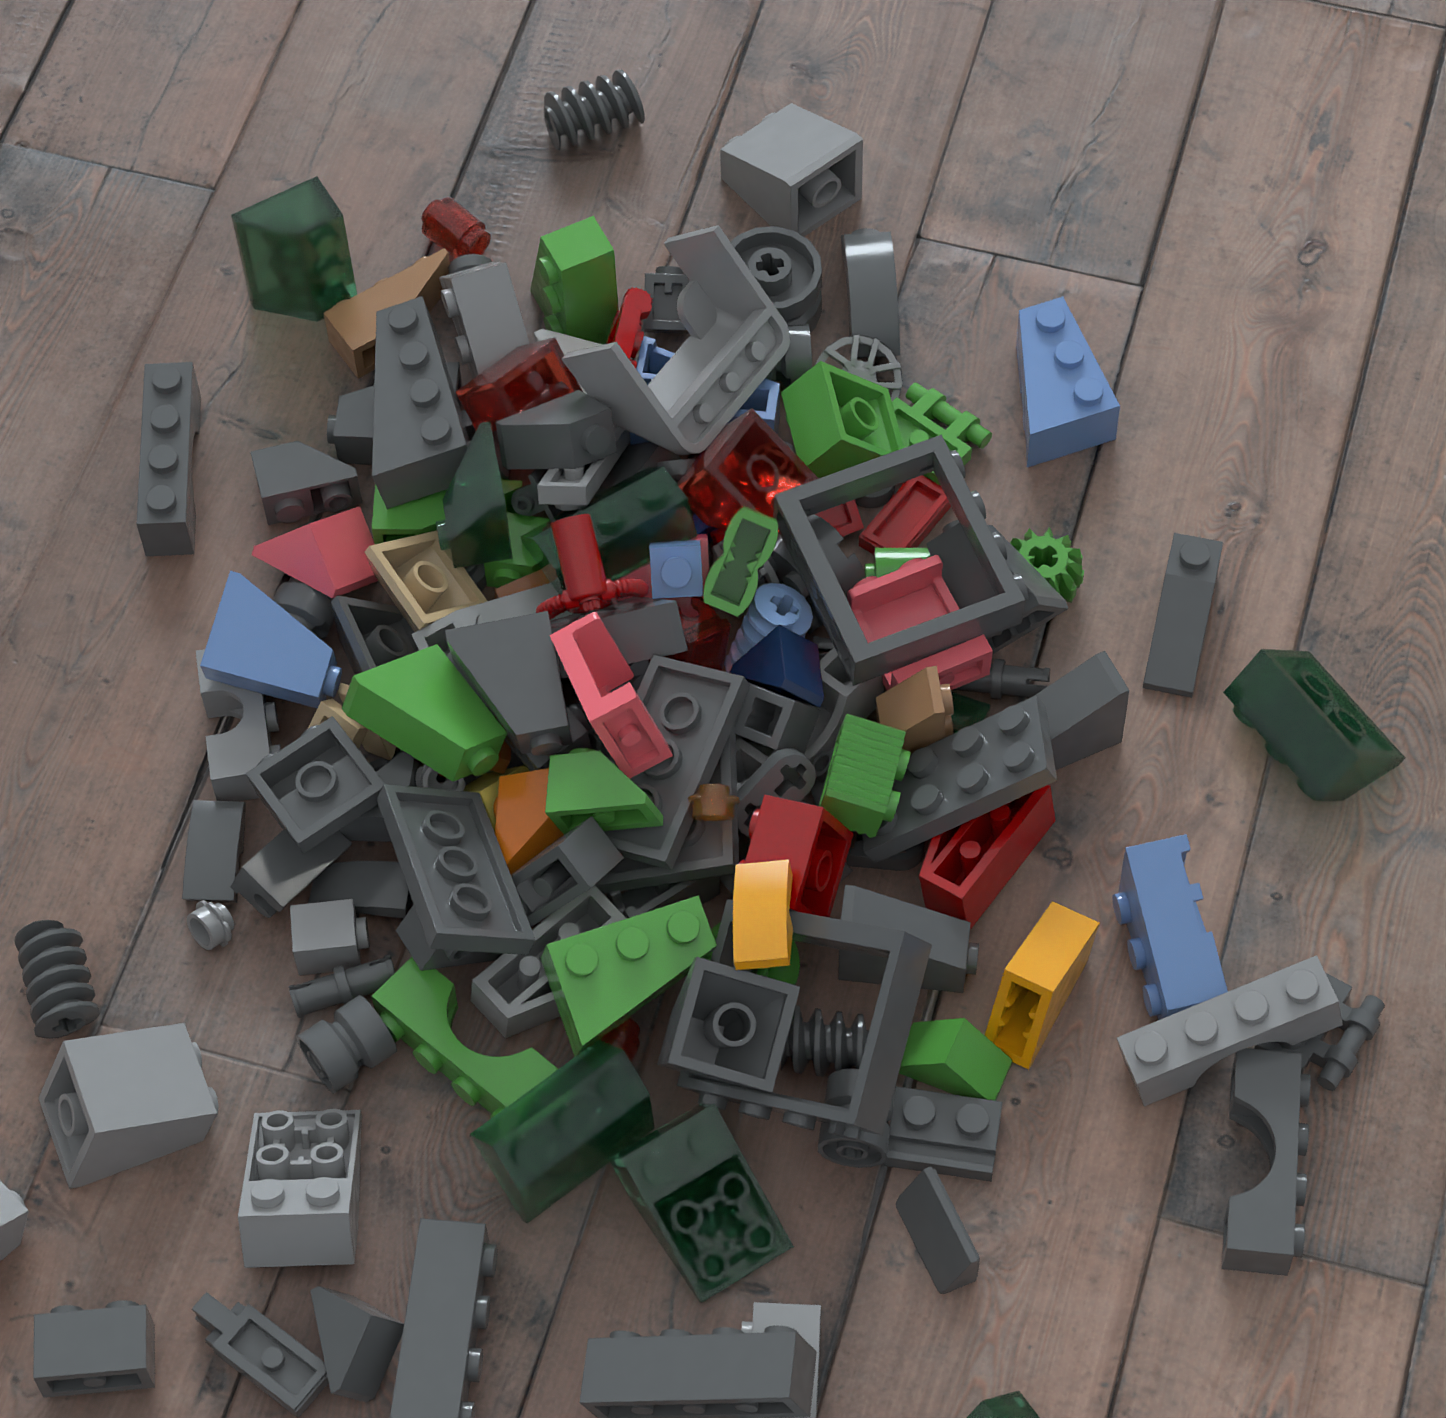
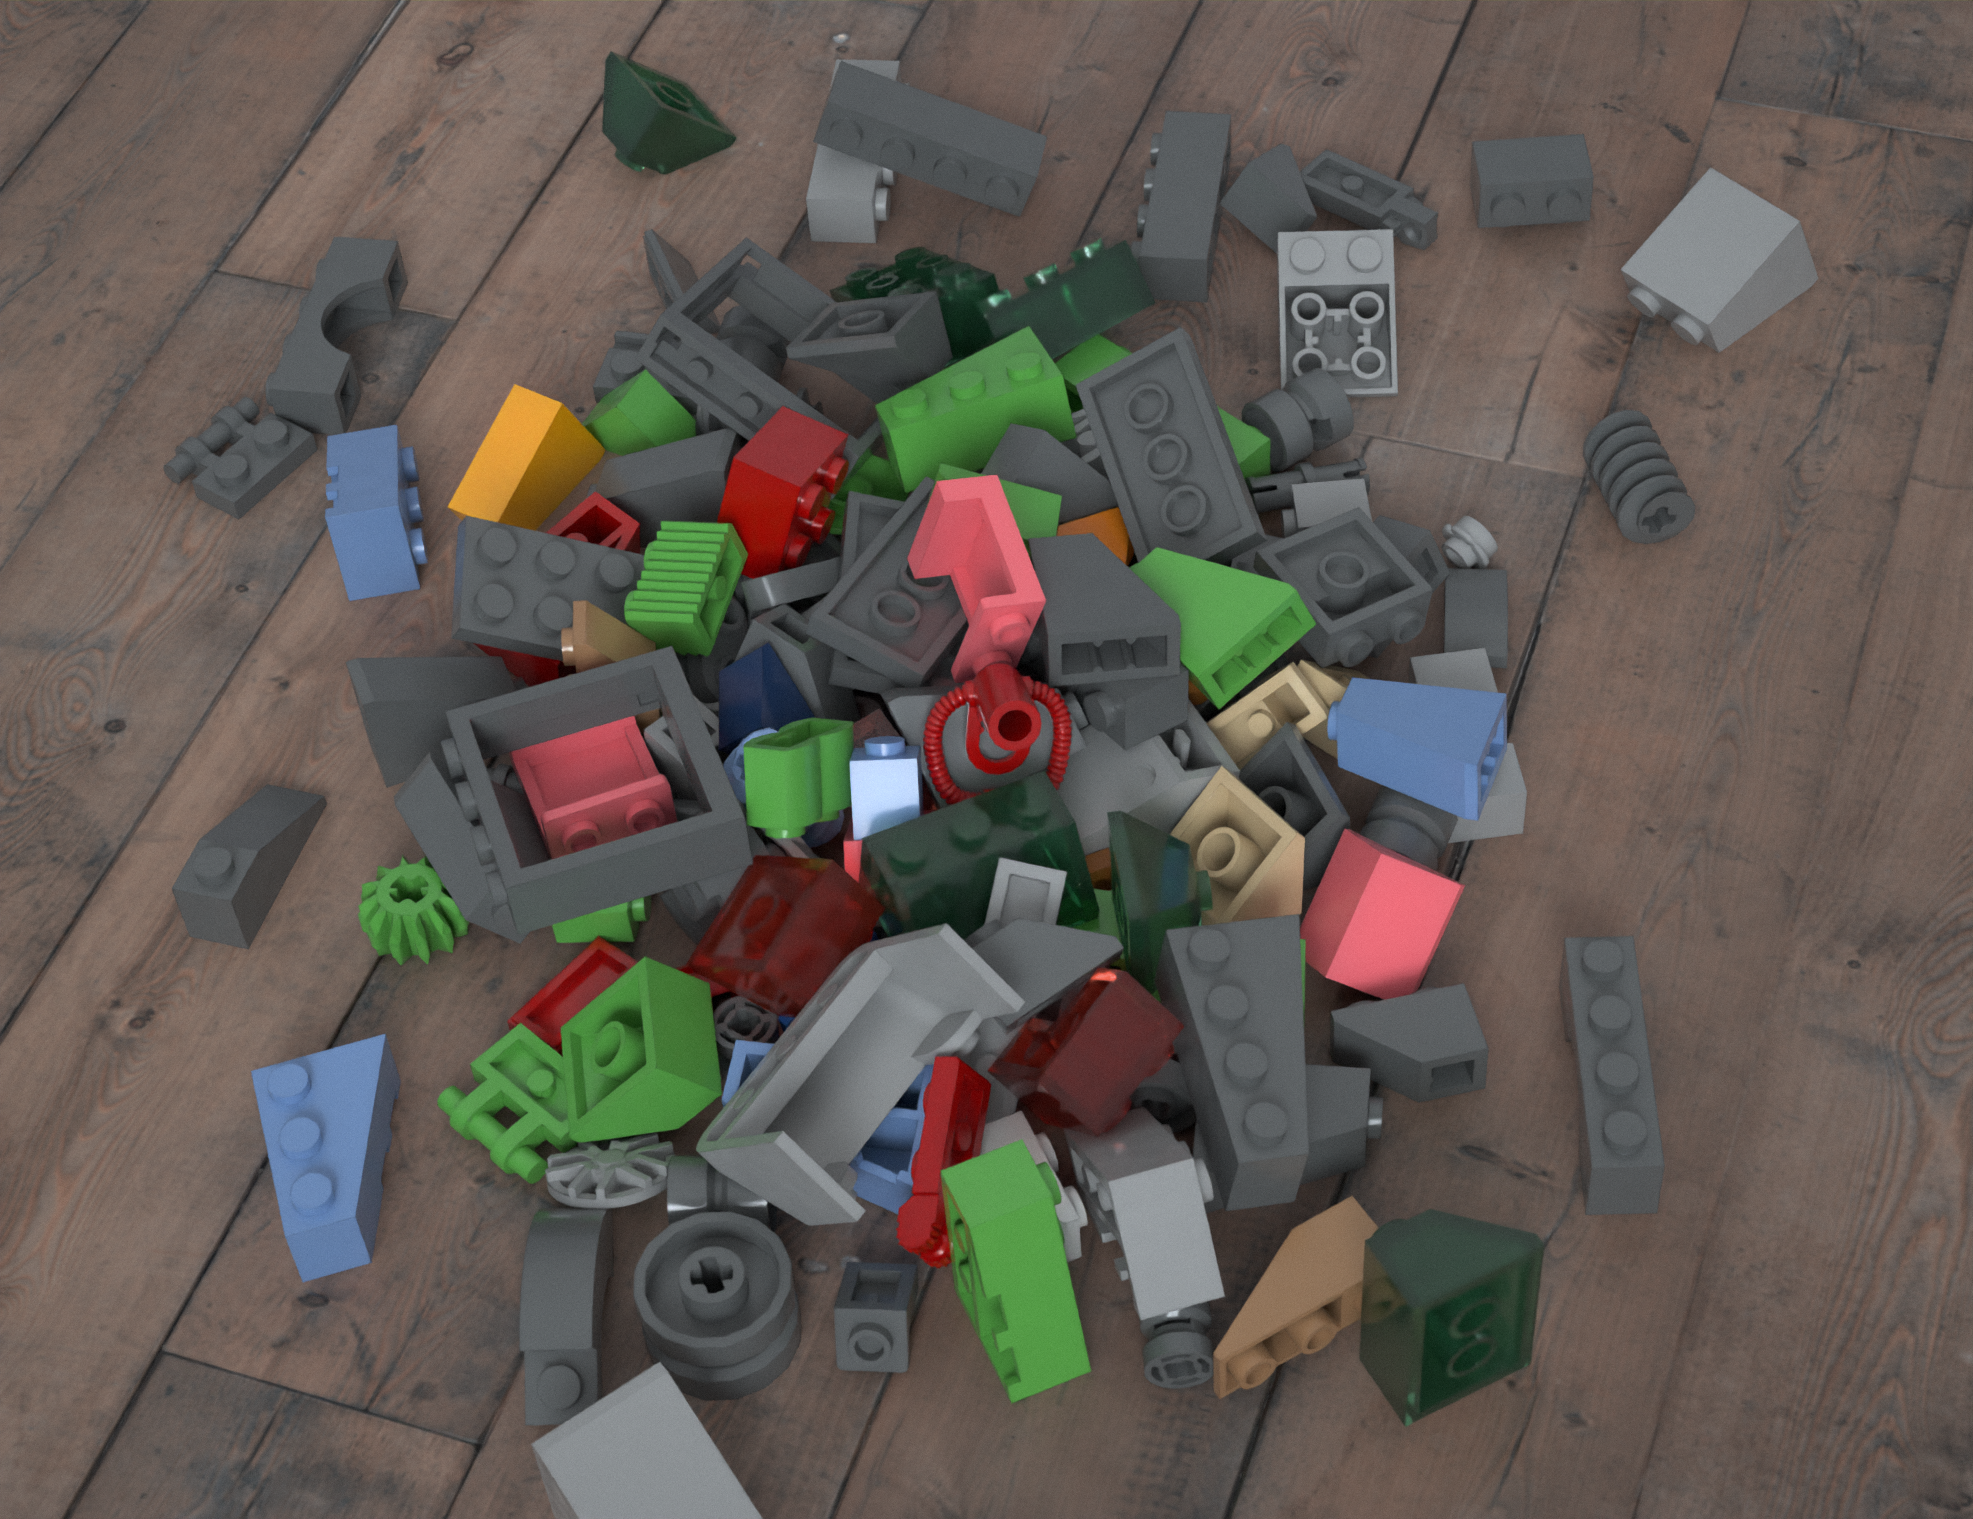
camera: 175 degrees left, 10 degrees down
(125, 1100) = (1531, 369): light grey slope -> none
(454, 228) = (1208, 1442): clear red brick -> none
(713, 803) = (861, 504): clear orange plate -> none
(762, 915) = (816, 378): light orange slope -> none
(1275, 1008) = (270, 406): light grey arch -> none
(1311, 724) = (133, 727): clear green slope -> none

